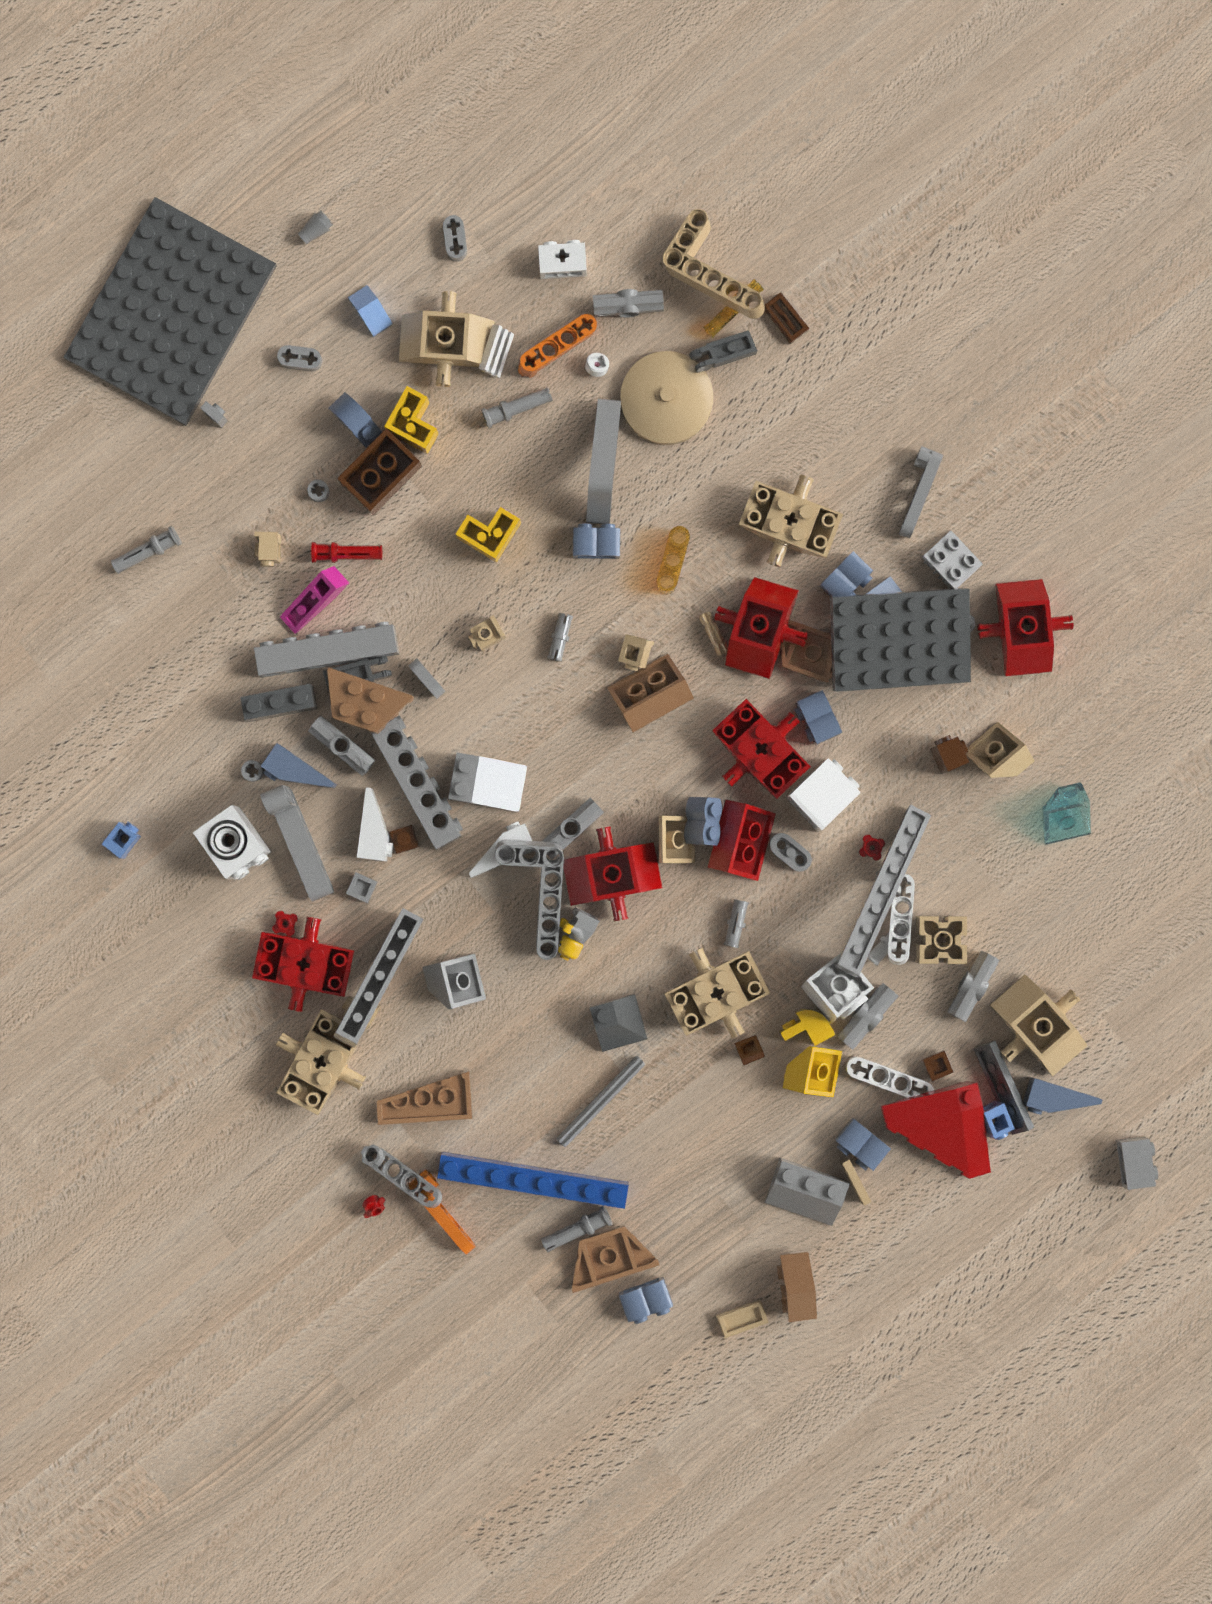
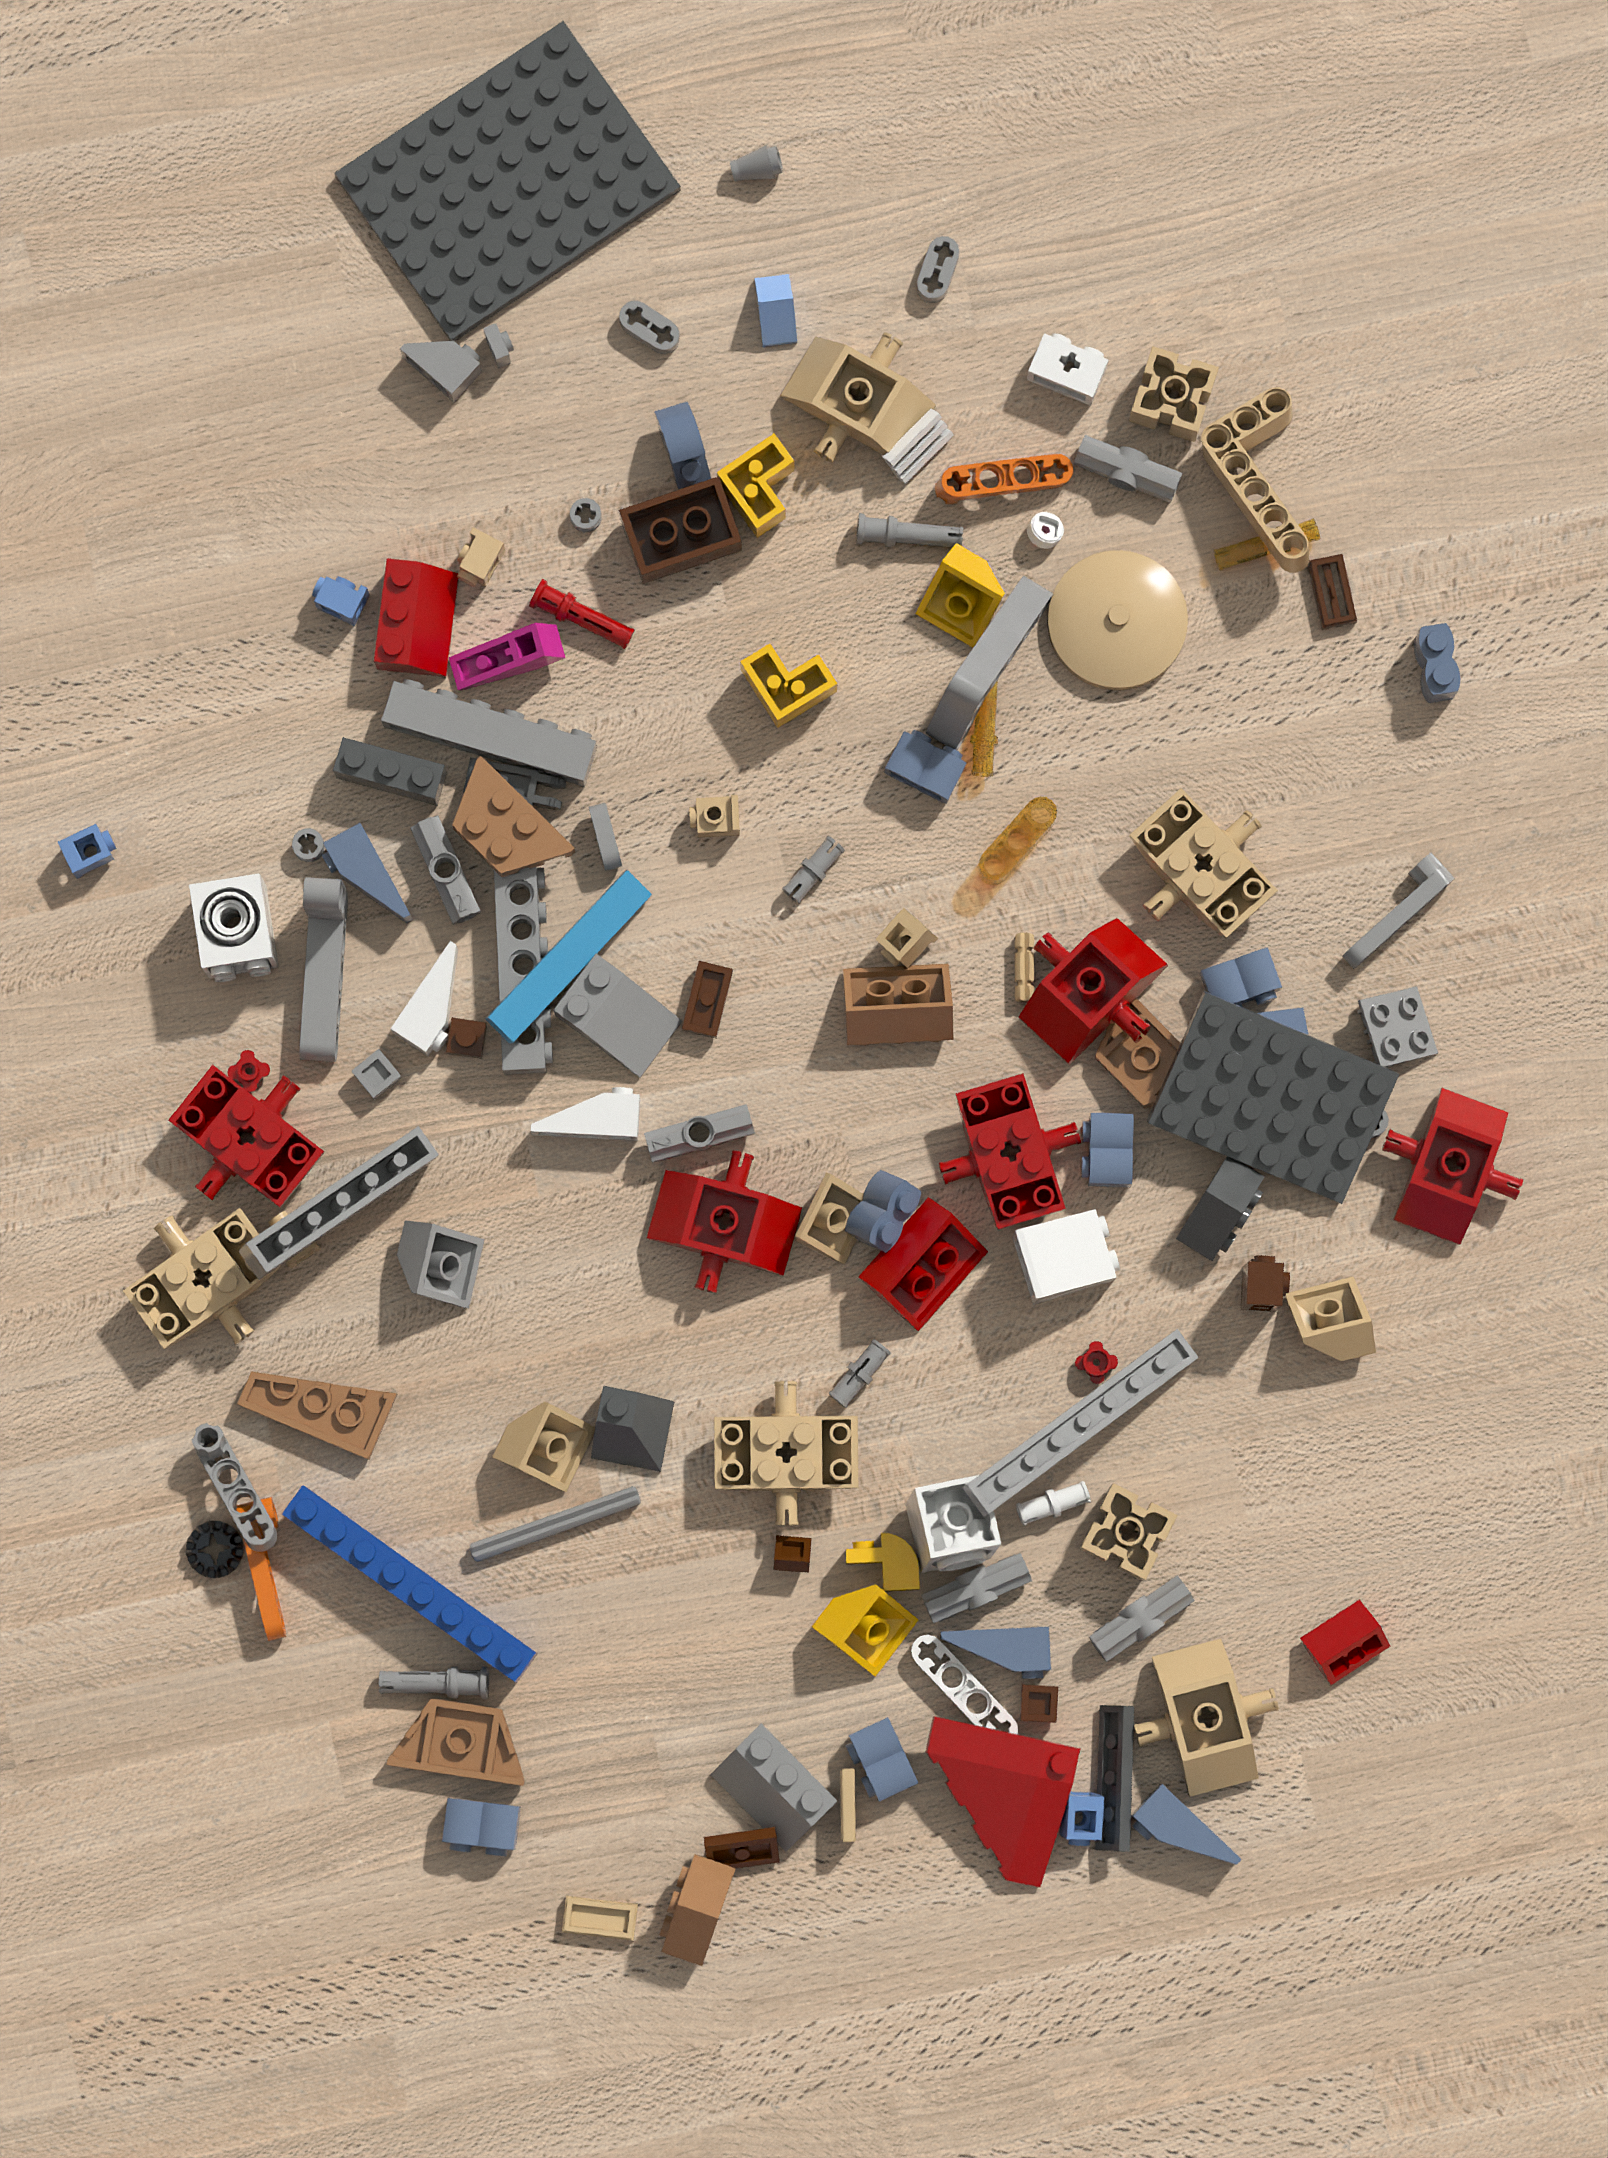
camera: 20 degrees right, 5 degrees down
(156, 545) = (332, 481): light grey pin -> none
(188, 441) = (444, 365): none -> light grey slope
(197, 613) = (340, 598): none -> medium blue brick
(248, 603) = (415, 618): none -> red slope
(373, 1206) = (175, 1512): red plate -> none
(396, 1214) = (227, 1560): none -> black gear
(441, 762) = (568, 957): none -> dark azure tile
(536, 746) = (707, 999): none -> reddish brown plate
(546, 889) = (625, 1196): light grey beam -> none
(567, 429) = (962, 596): none -> yellow slope
(572, 1058) = (545, 1445): none -> tan slope
(577, 931) = (638, 1278): piece -> none
(623, 508) = (984, 736): none -> clear yellow pin
(642, 233) = (1162, 376): none -> tan brick
(724, 351) = (1226, 595): dark grey hinge -> none
(790, 852) = (983, 1313): light grey plate -> none
(806, 1237) = (743, 1848): none -> reddish brown plate
(866, 326) = (1434, 654): none -> sand blue brick
(901, 919) = (1090, 1478): white beam -> none
(902, 720) = (1222, 1208): none -> dark grey brick
(906, 1041) = (1011, 1648): none -> sand blue slope
(1066, 814) = (1383, 1447): clear light blue slope -> none
(1099, 940) = (1345, 1642): none -> red brick
(1137, 1163) = (1247, 1973): light grey brick -> none

